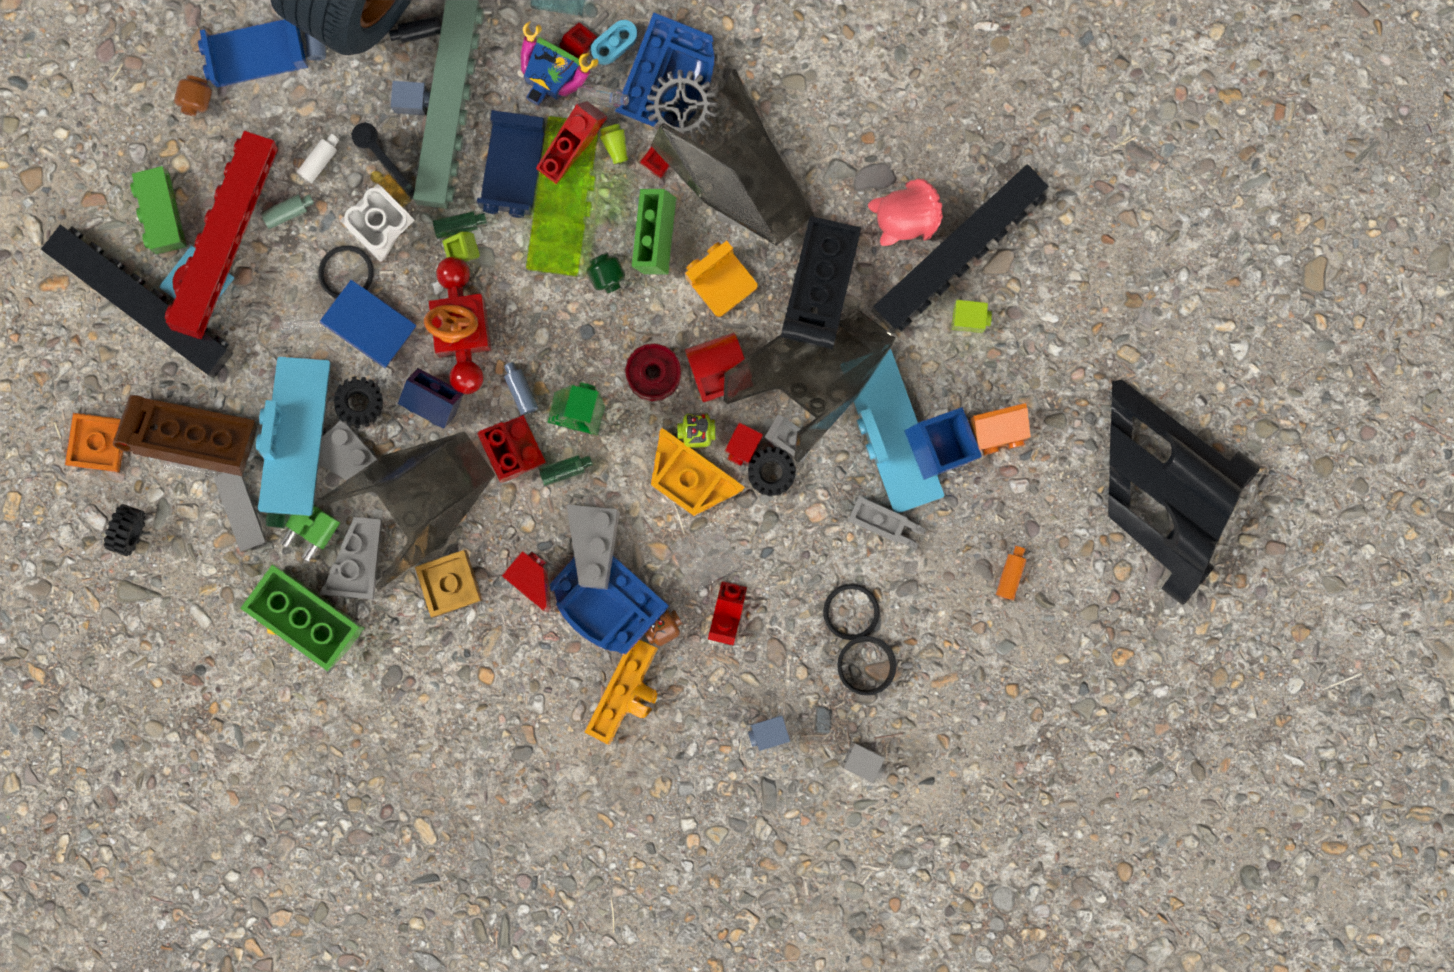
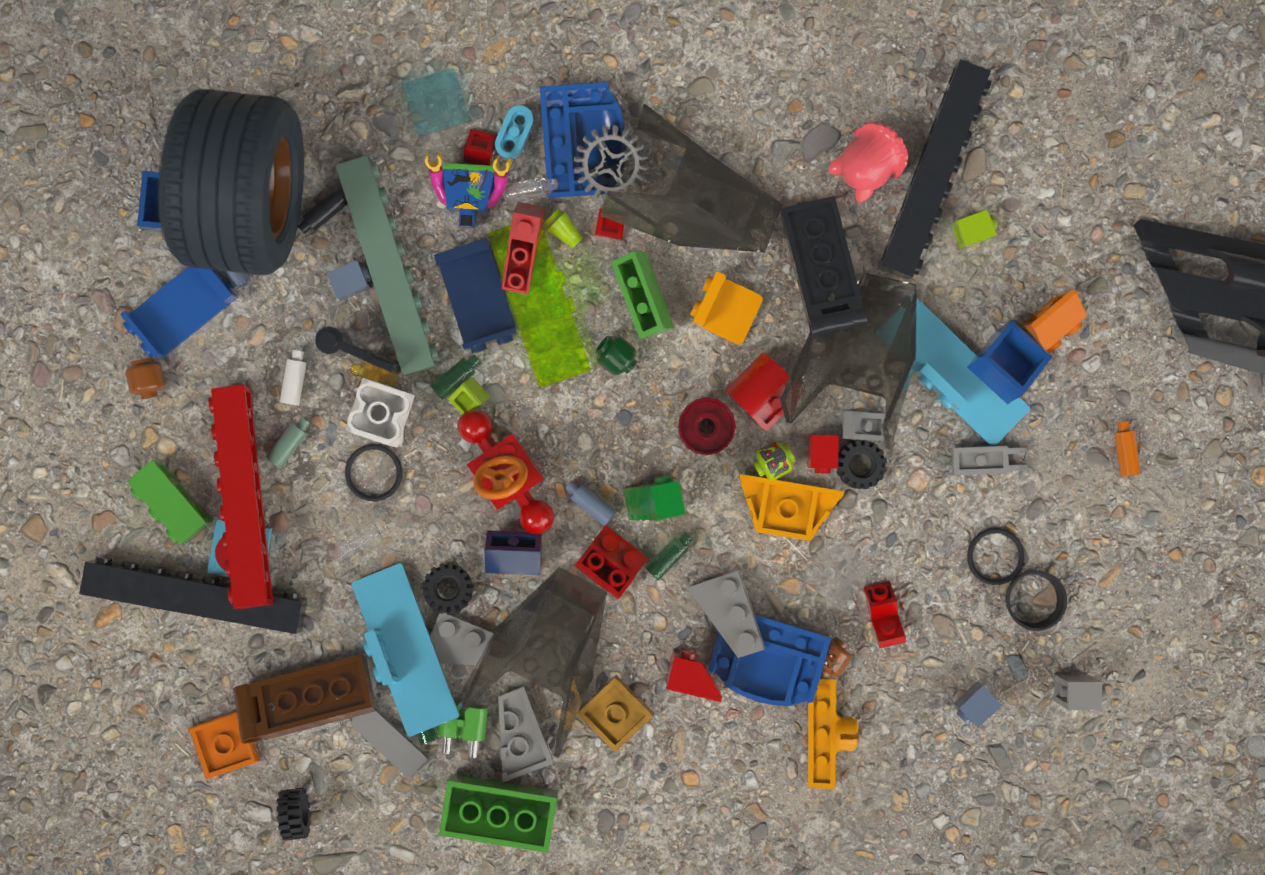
camera: 30 degrees left, 5 degrees up
(368, 324) = (419, 512): blue tile -> none

